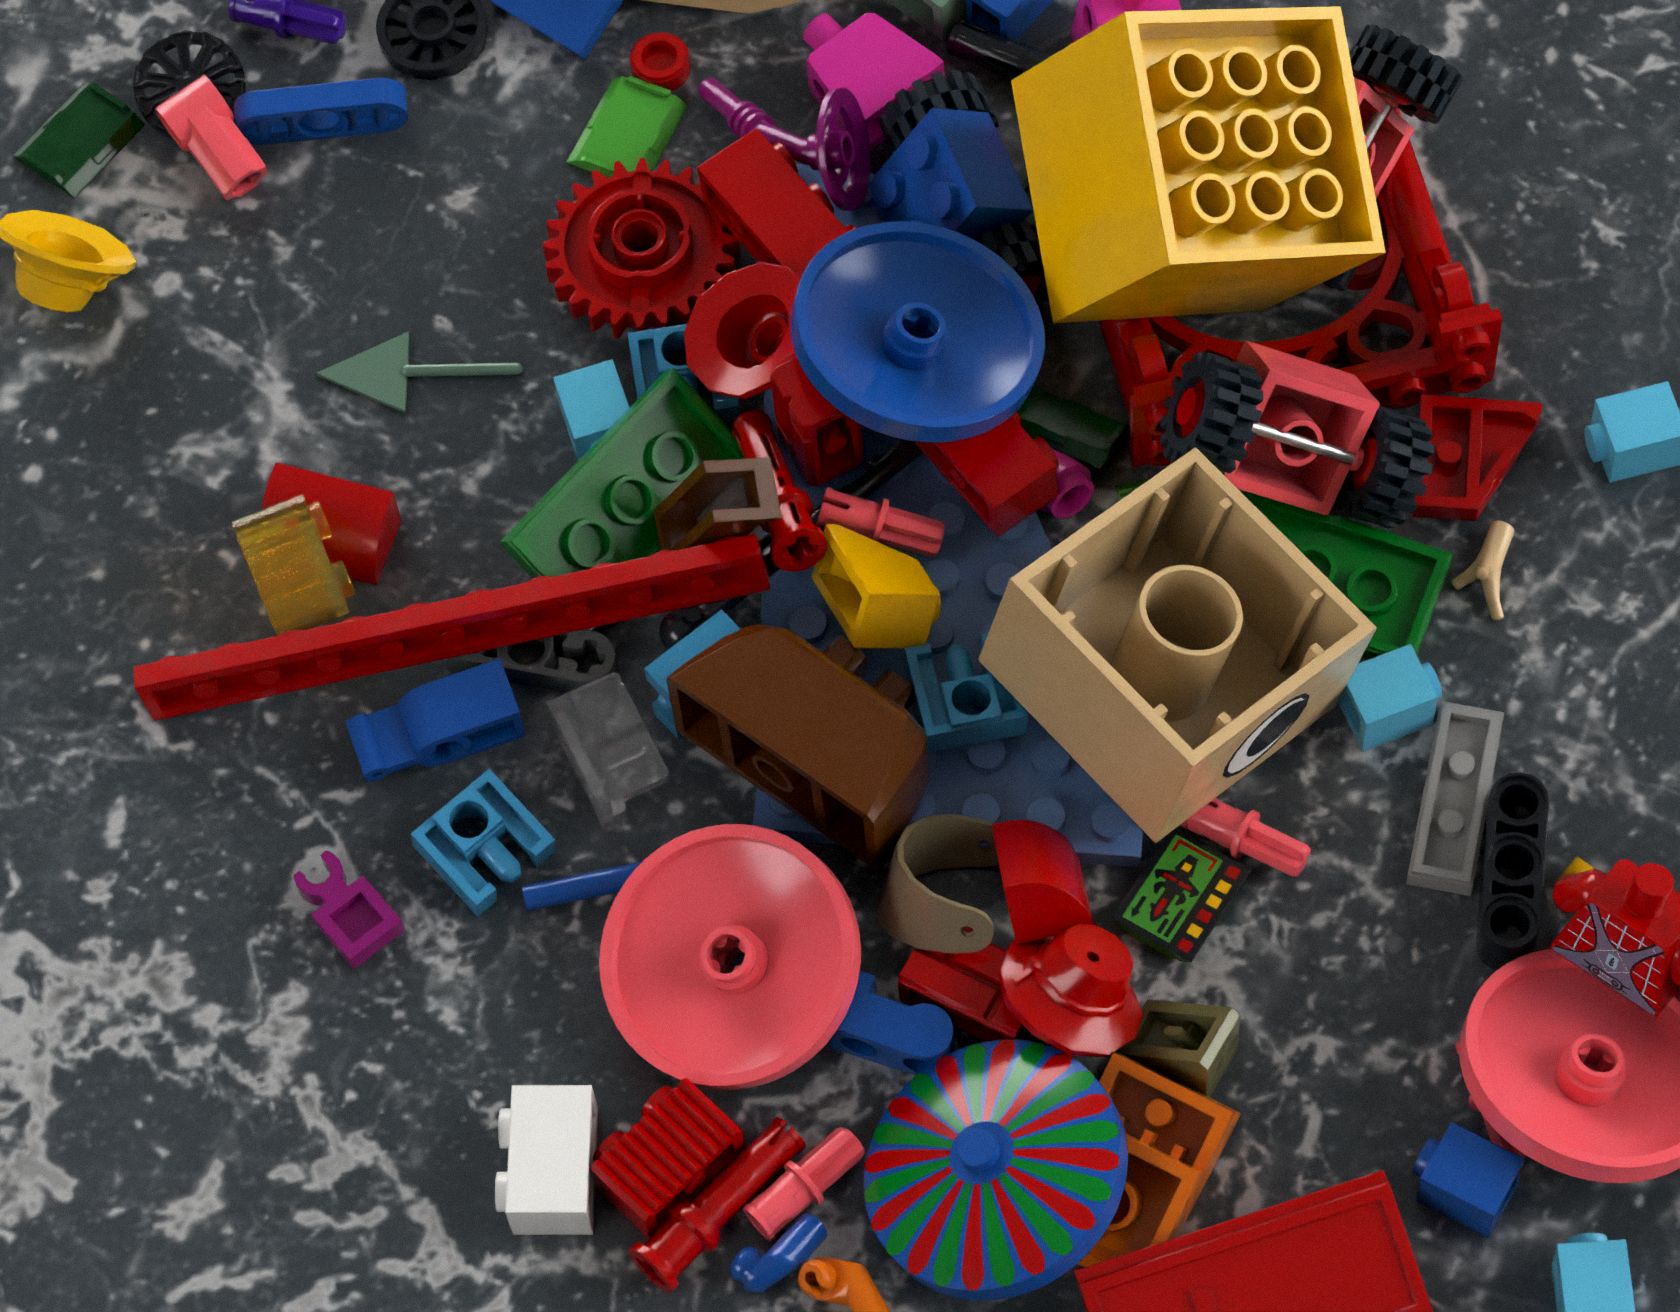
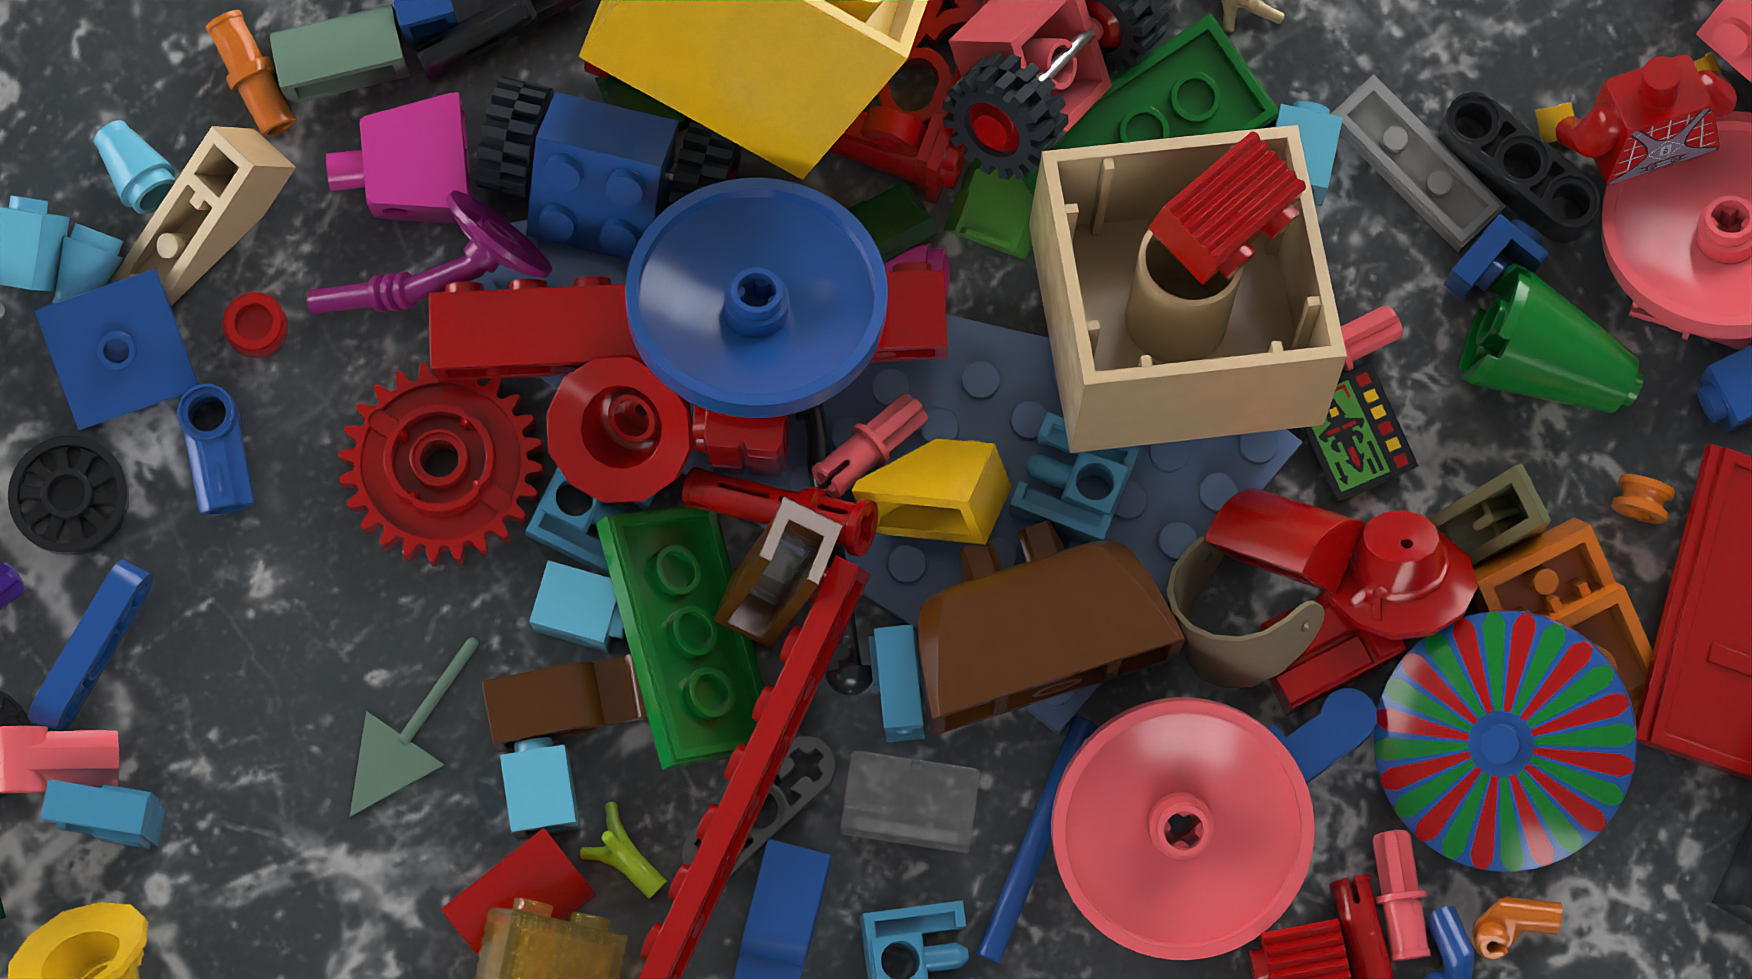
camera: 60 degrees left, 15 degrees up
(194, 196) = (106, 813): none -> dark azure brick
(423, 571) = (623, 855): none -> lime bar
(429, 480) = (539, 788): none -> medium azure brick
(502, 444) = (563, 701): none -> reddish brown piece
(535, 95) = (217, 455): none -> blue piece
(628, 124) = (300, 397): bright green piece -> none
(1249, 601) = (1228, 209): none -> red brick
(1298, 1156) = (1643, 498): none -> orange bush
(1367, 989) = (1547, 348): none -> green cone
(1414, 894) = (1484, 261): none -> blue bracket

